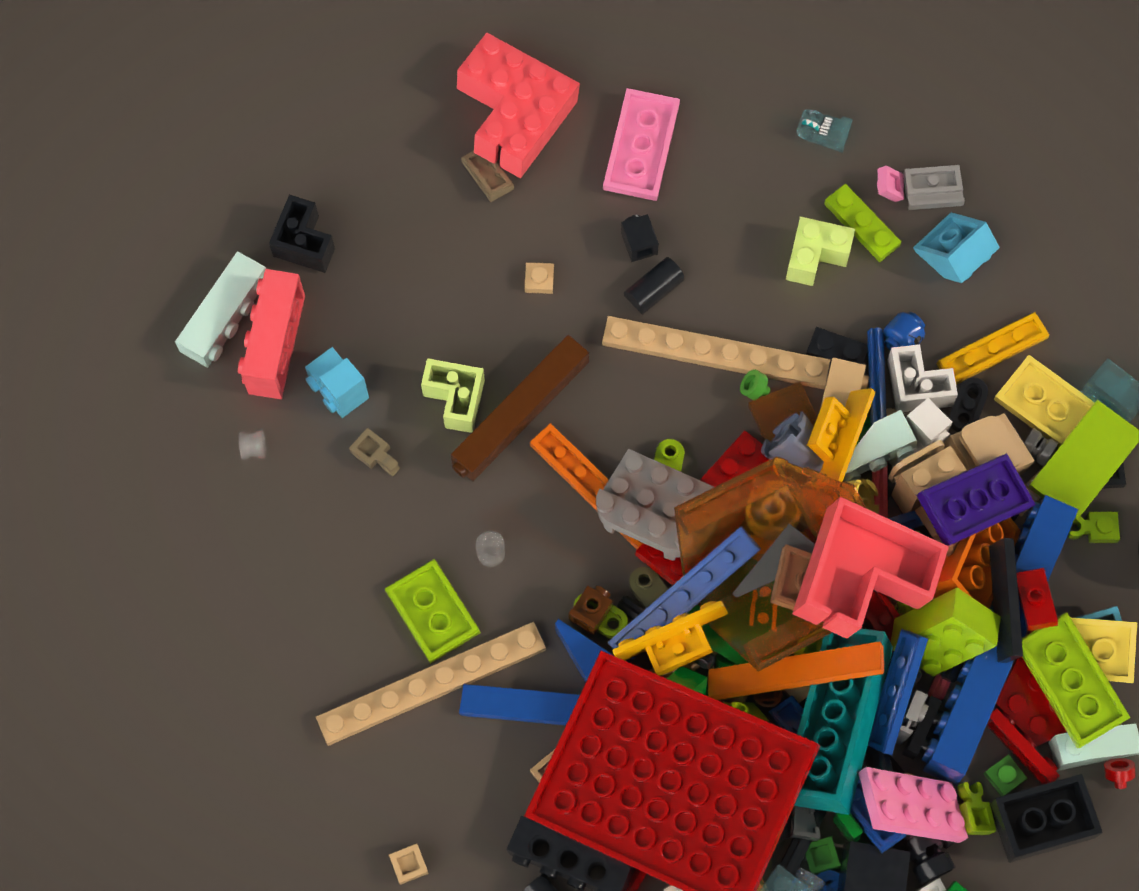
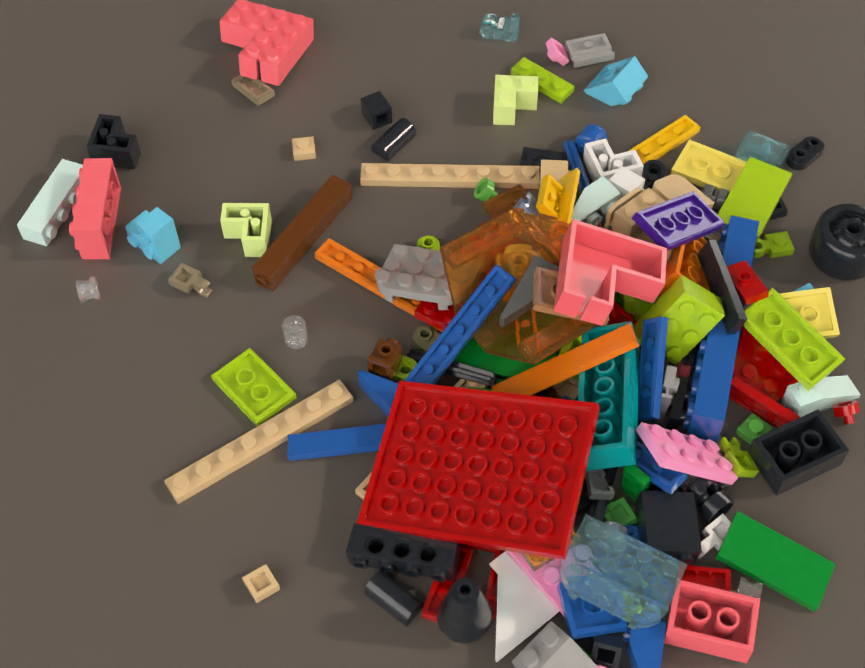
camera: 10 degrees left, 15 degrees down
(641, 144) = (366, 55): bright pink plate -> none
(675, 642) = (460, 363): yellow bracket -> none

